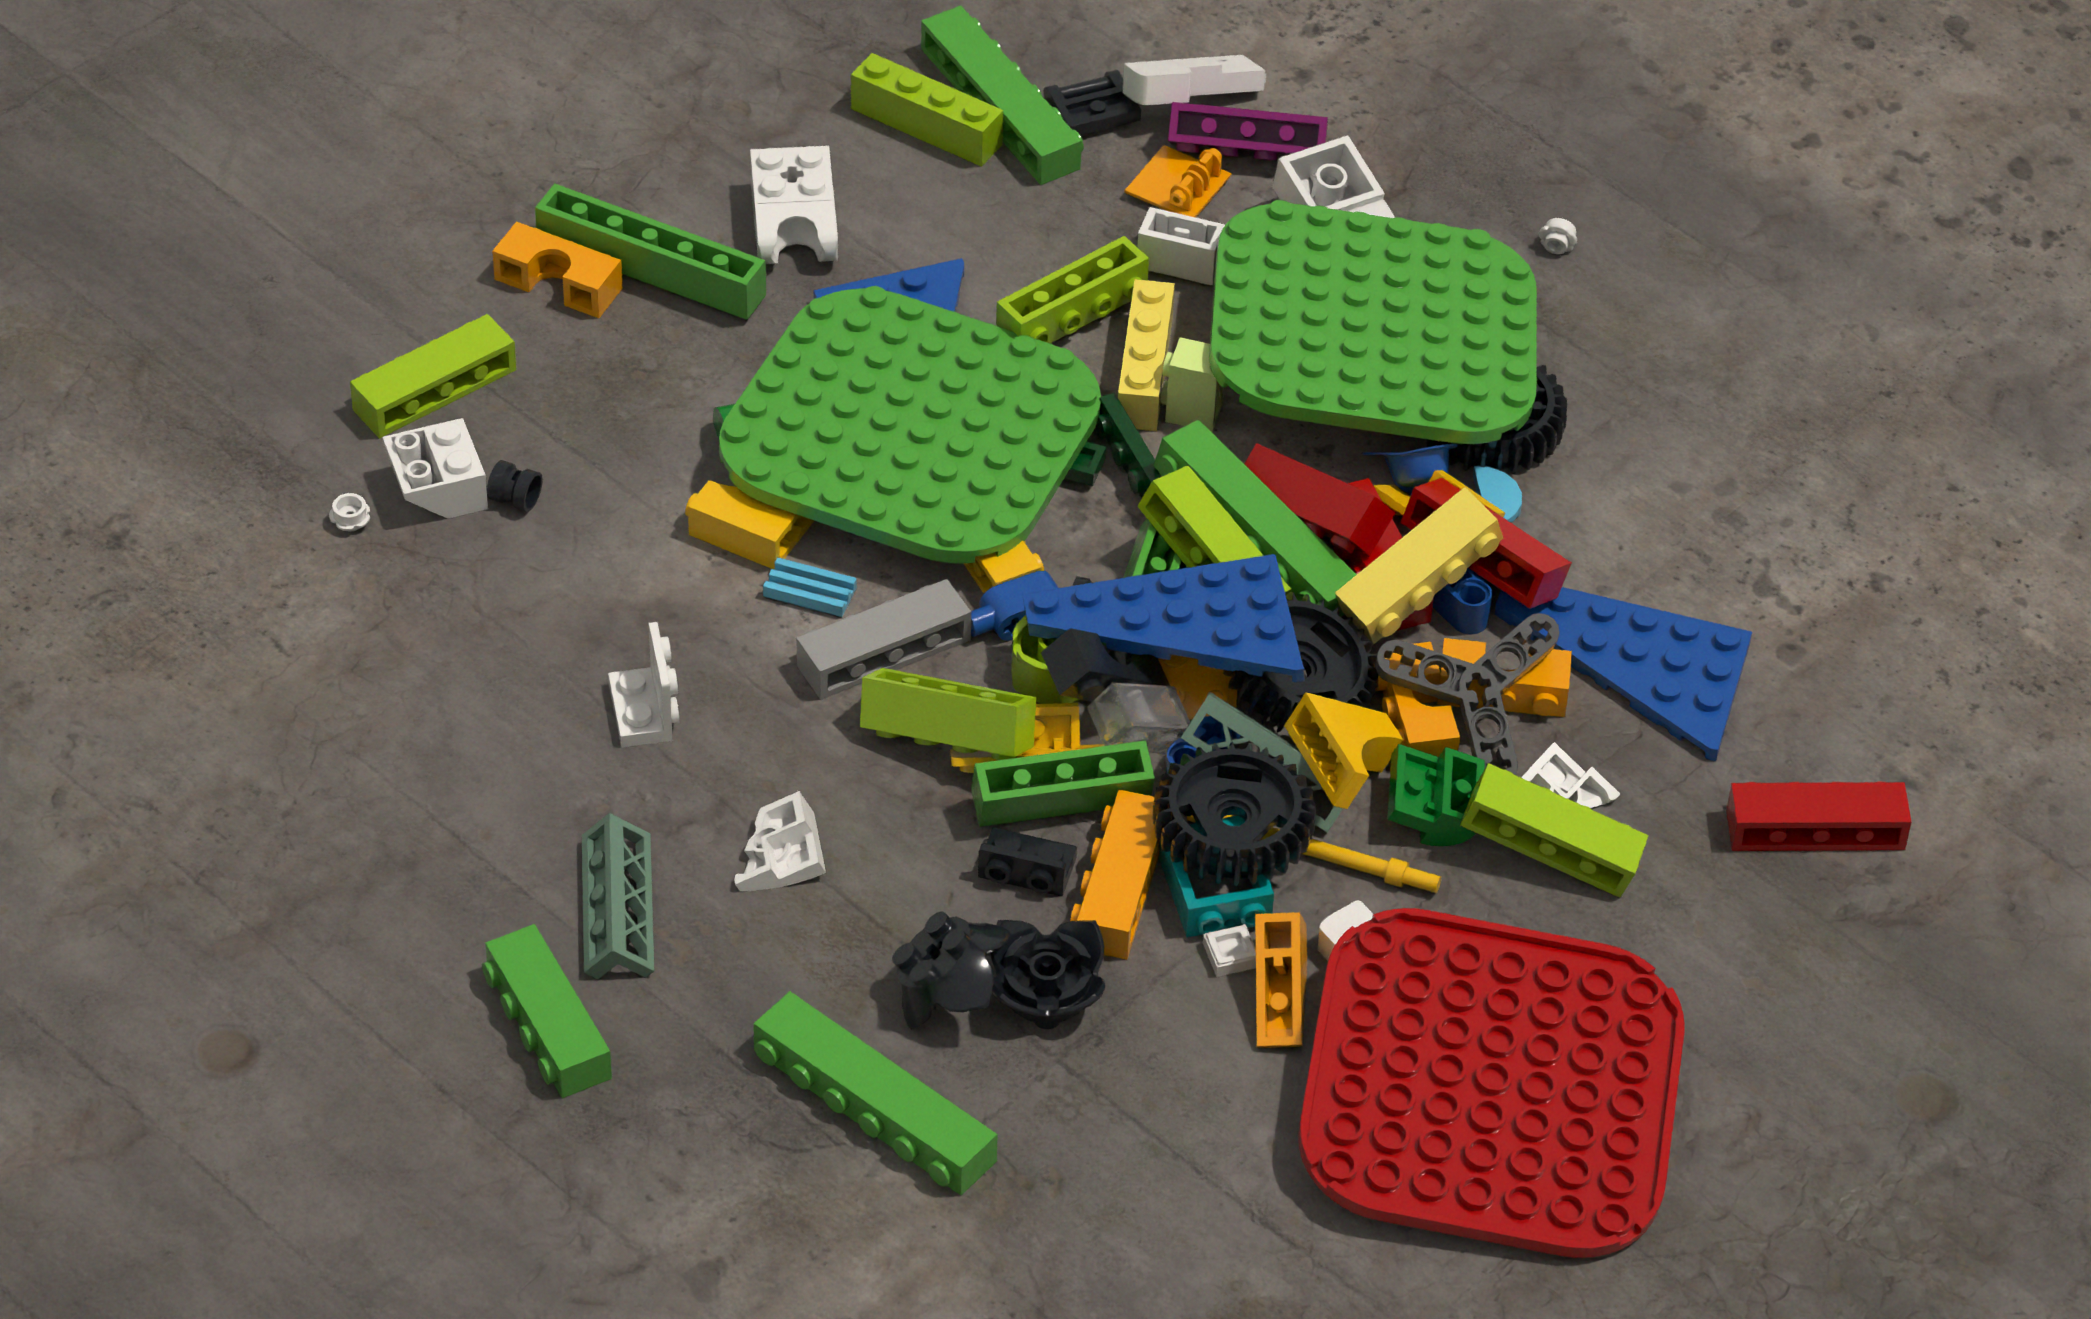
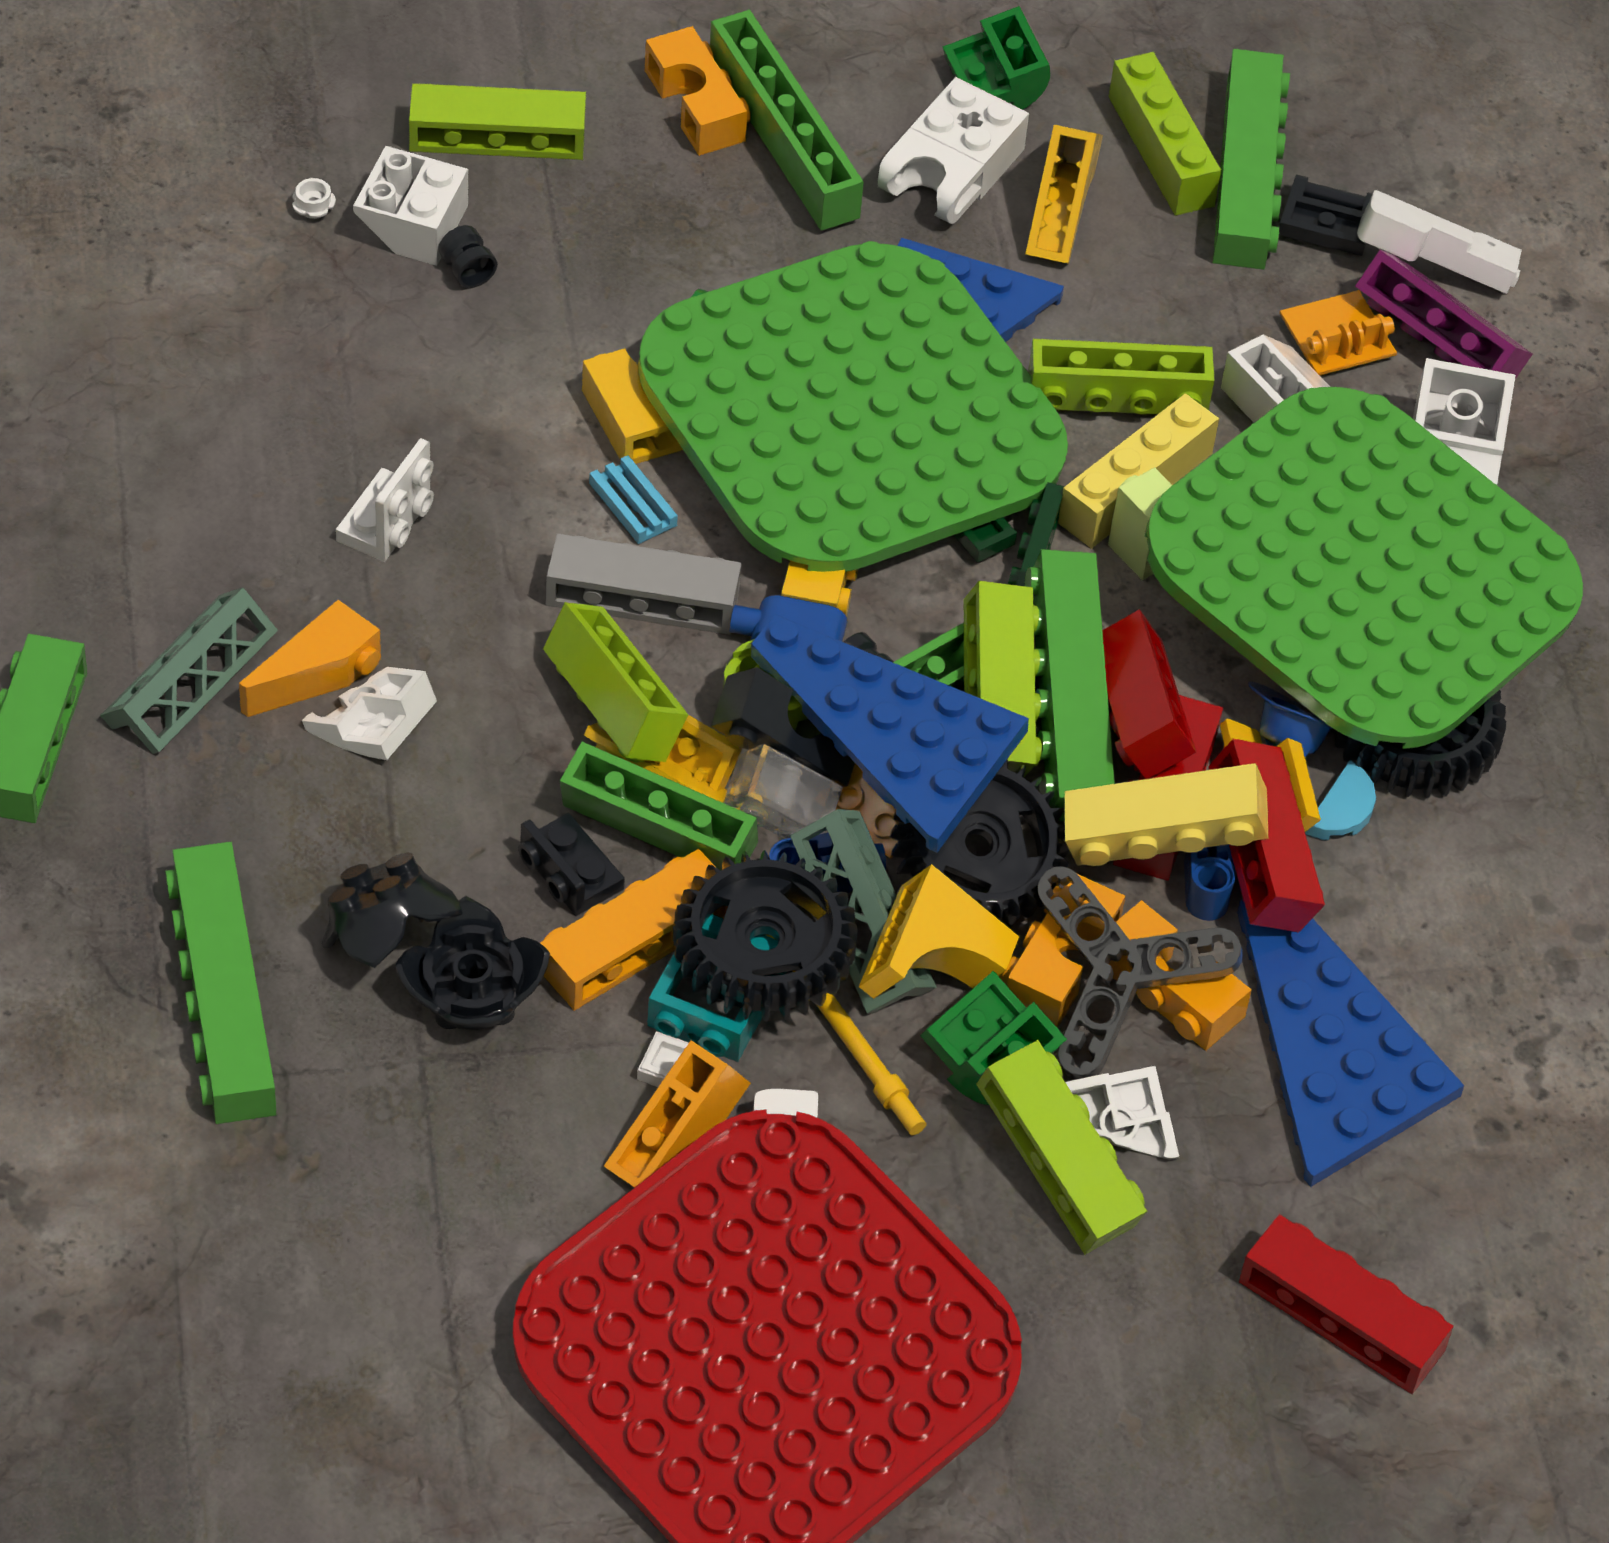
camera: 35 degrees right, 5 degrees up
(709, 832) = (314, 662): none -> light orange slope
(761, 118) = (1002, 59): none -> green brick
(899, 175) = (1062, 192): none -> yellow arch

